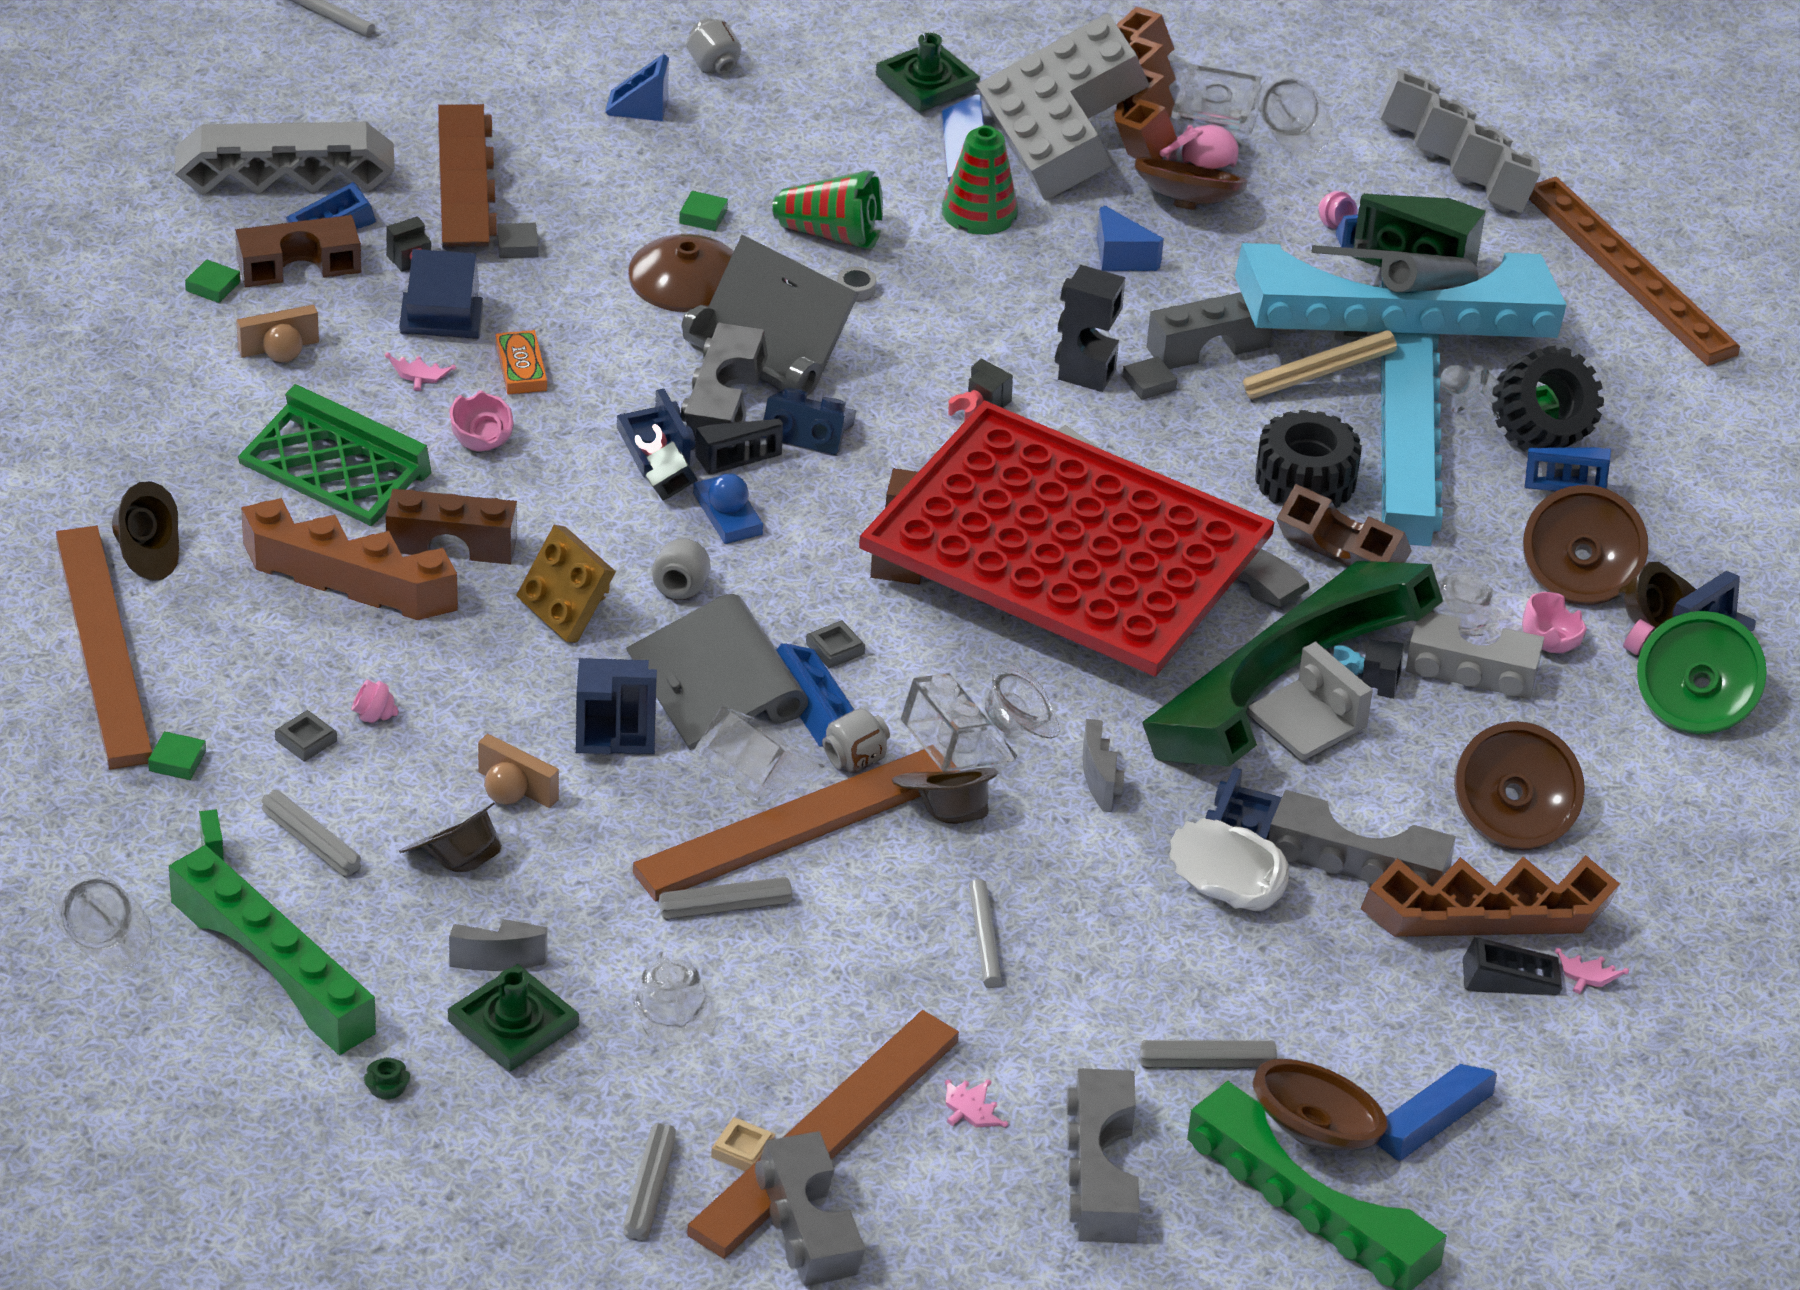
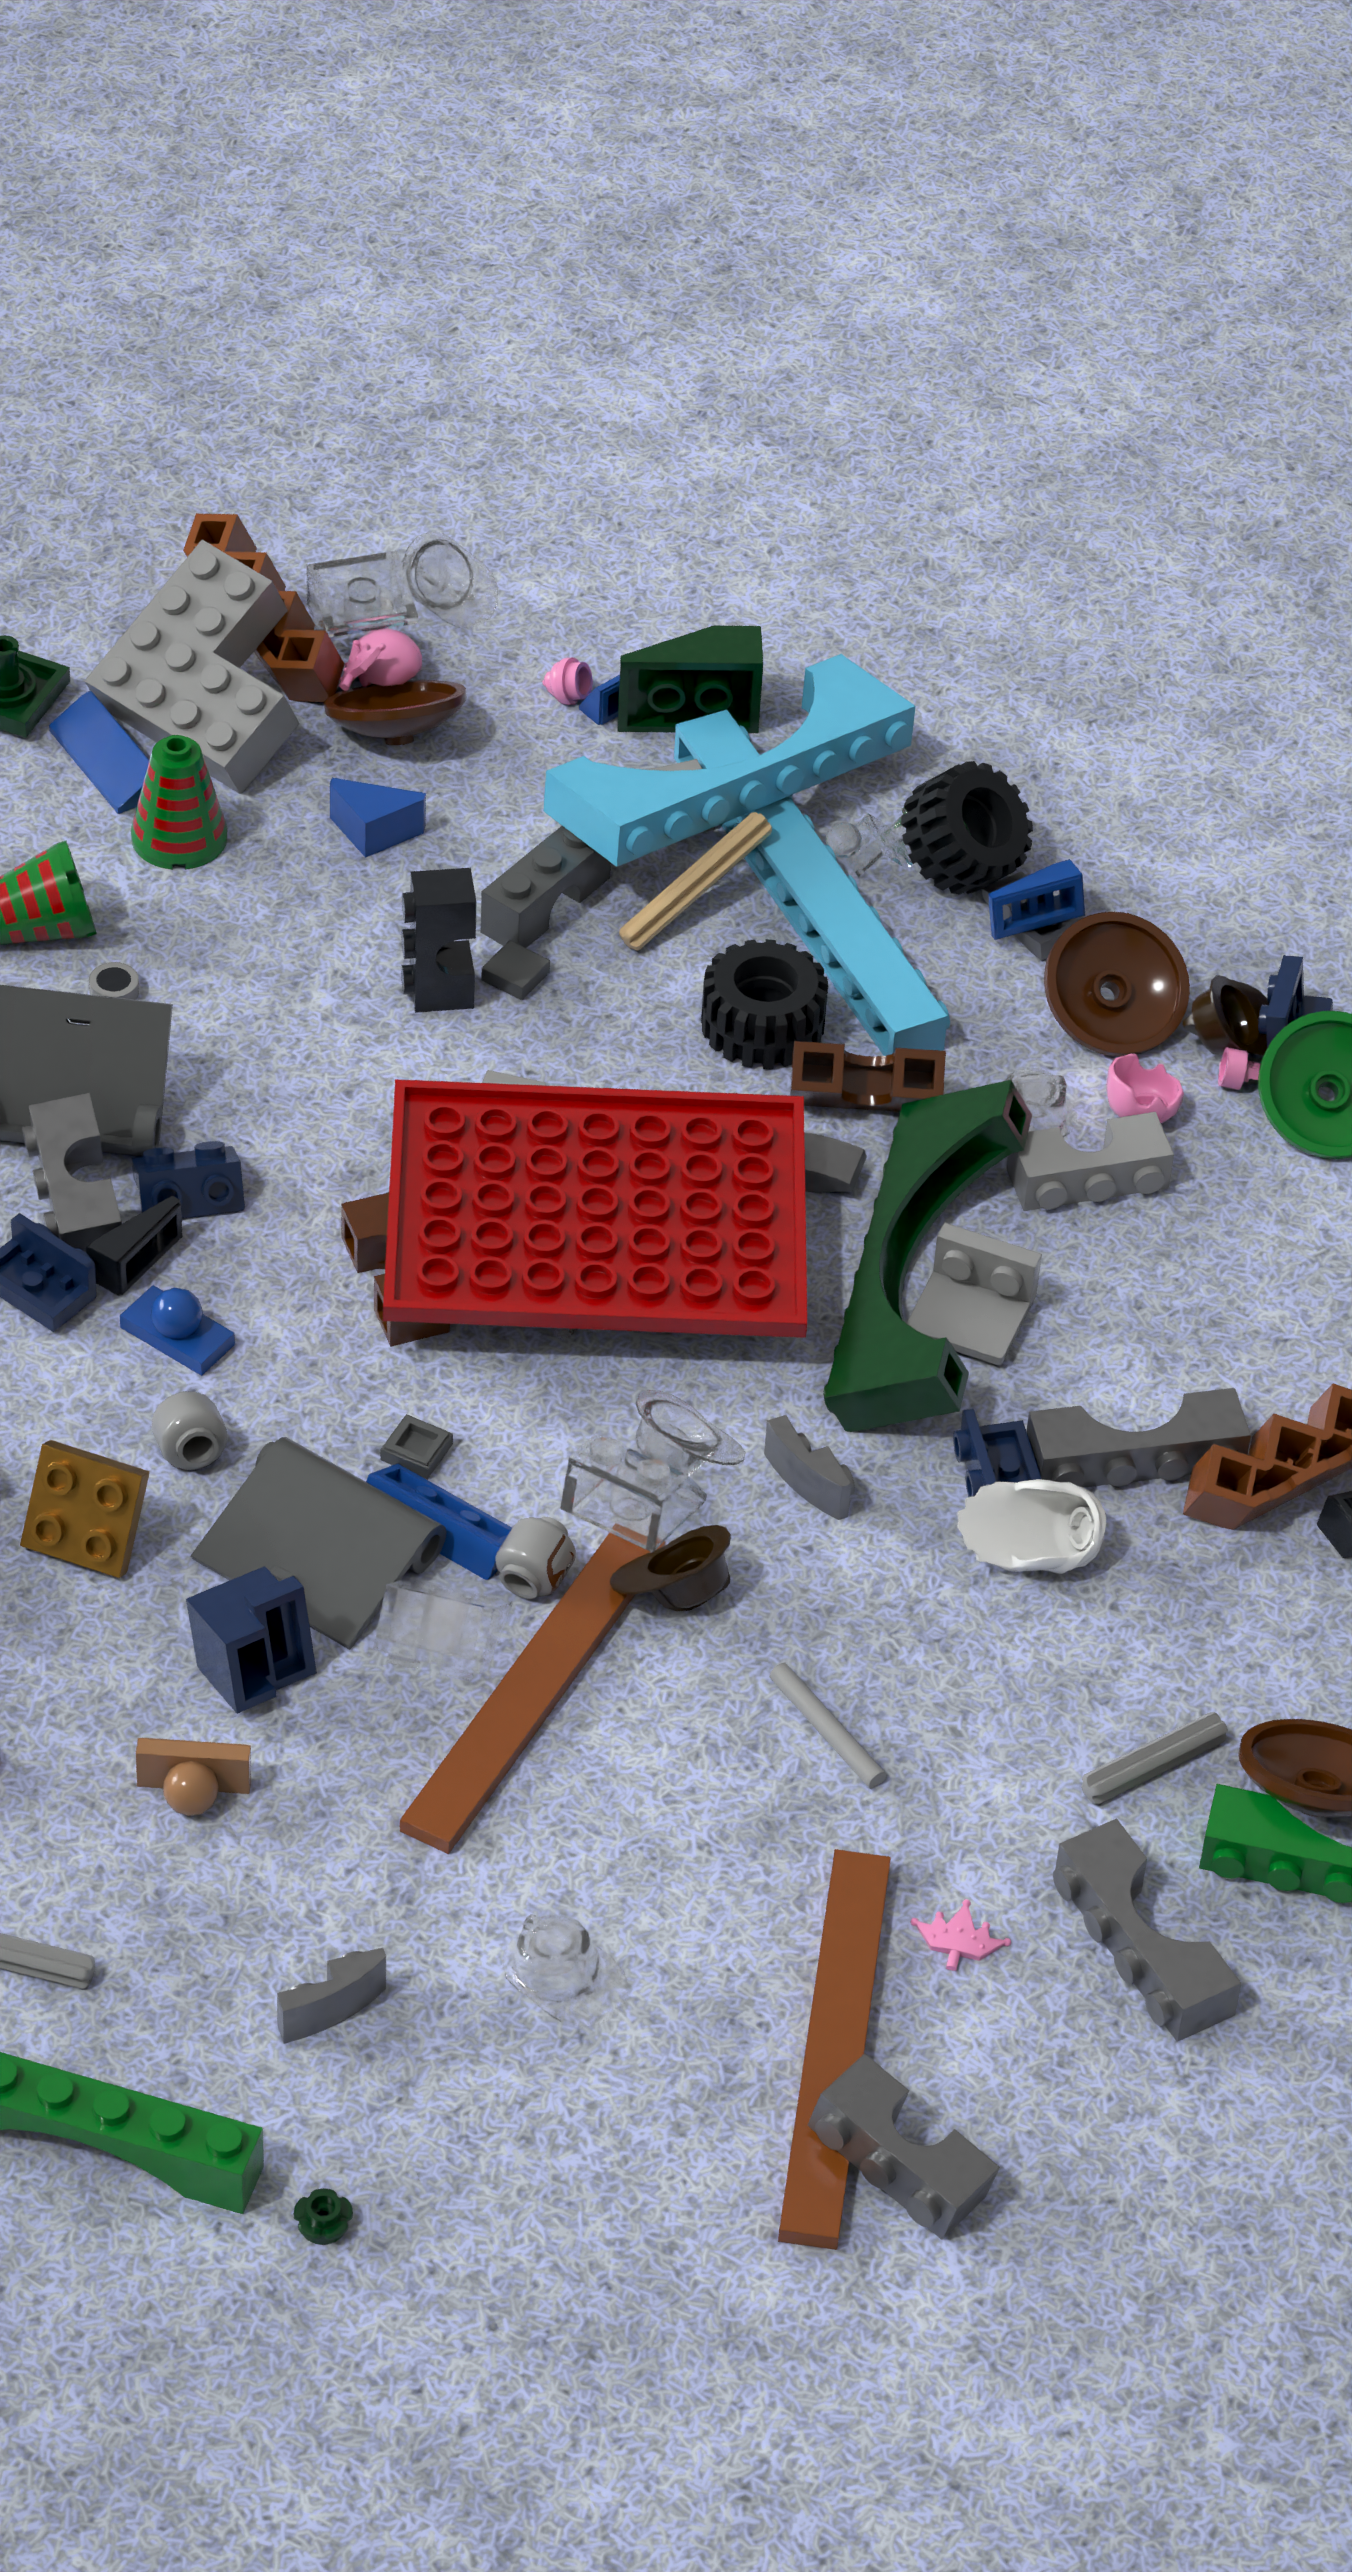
camera: 30 degrees left, 5 degrees up
(463, 845) = (193, 1885): dark brown piece -> none
(513, 1017) = (409, 2073): dark green plate -> none
(649, 1182) = (698, 2198): light grey axle -> none
(670, 469) = (87, 1307): piece -> none
(725, 898) = (527, 1814): light grey axle -> none
(740, 1144) = (762, 2104): tan tile -> none
(986, 384) = (360, 1062): pearl dark grey piece -> none
(1379, 667) = (1004, 1216): black piece -> none
(1411, 270) = (744, 723): dark grey door -> none
(1449, 131) = (666, 551): light grey brick -> none
(1533, 765) = (1269, 1284): reddish brown dish -> none
(1633, 272) = (915, 631): dark orange tile -> none

